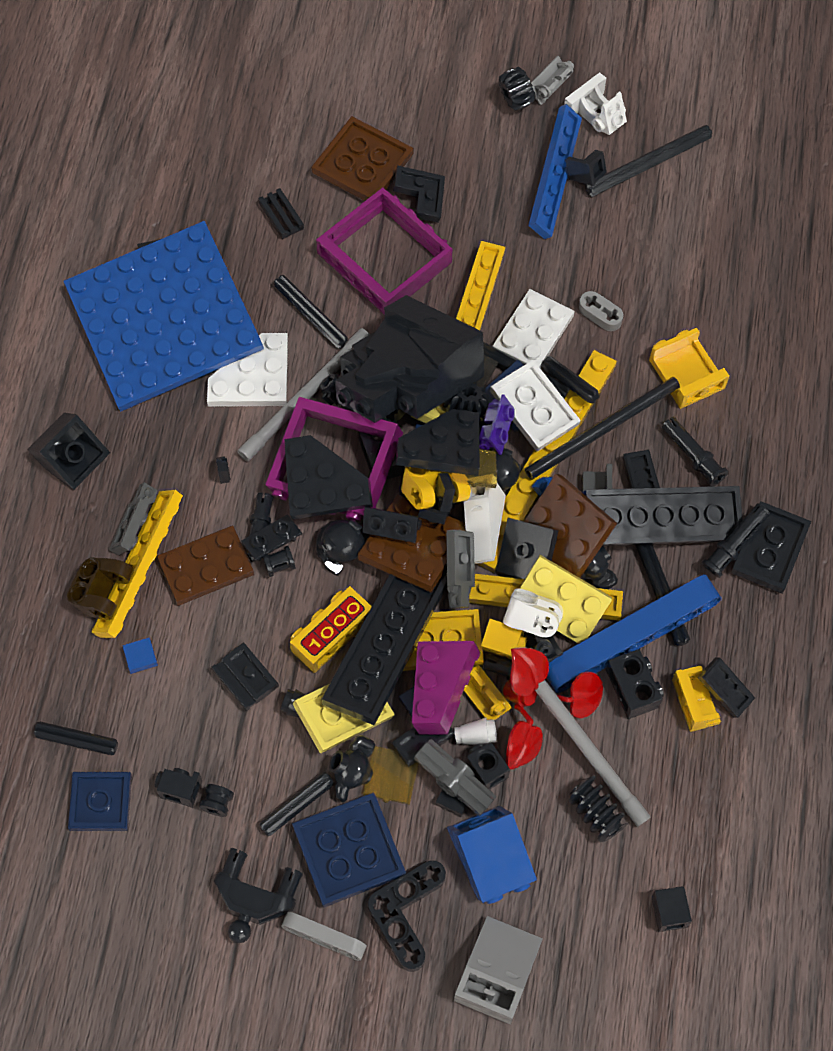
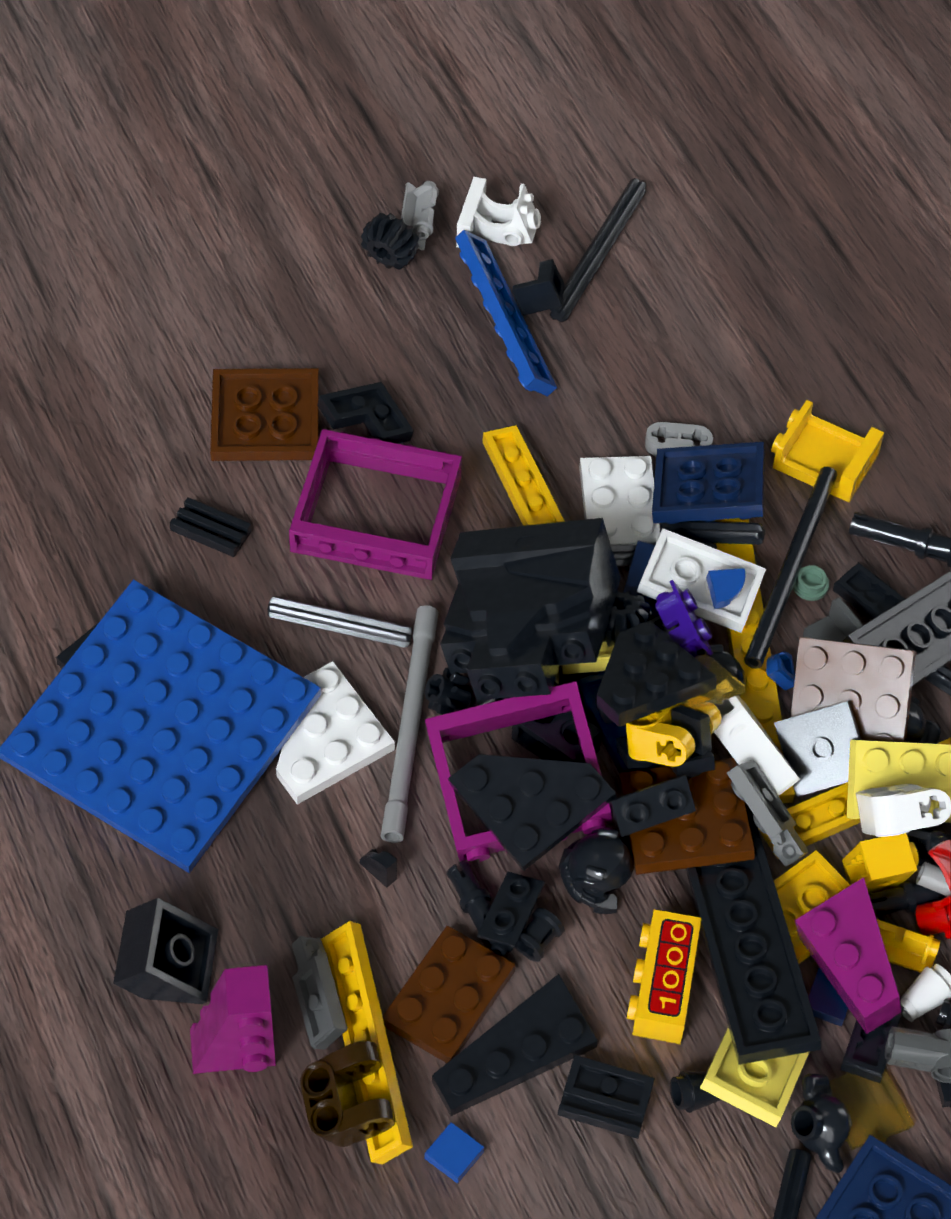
camera: 35 degrees left, 10 degrees down
(71, 512) = (236, 1024): none -> magenta wedge
(219, 619) = (520, 1046): none -> black wing
(543, 417) = (725, 585): none -> blue tile
(591, 347) = (709, 483): none -> dark blue plate
(610, 446) = (811, 583): none -> sand green plate

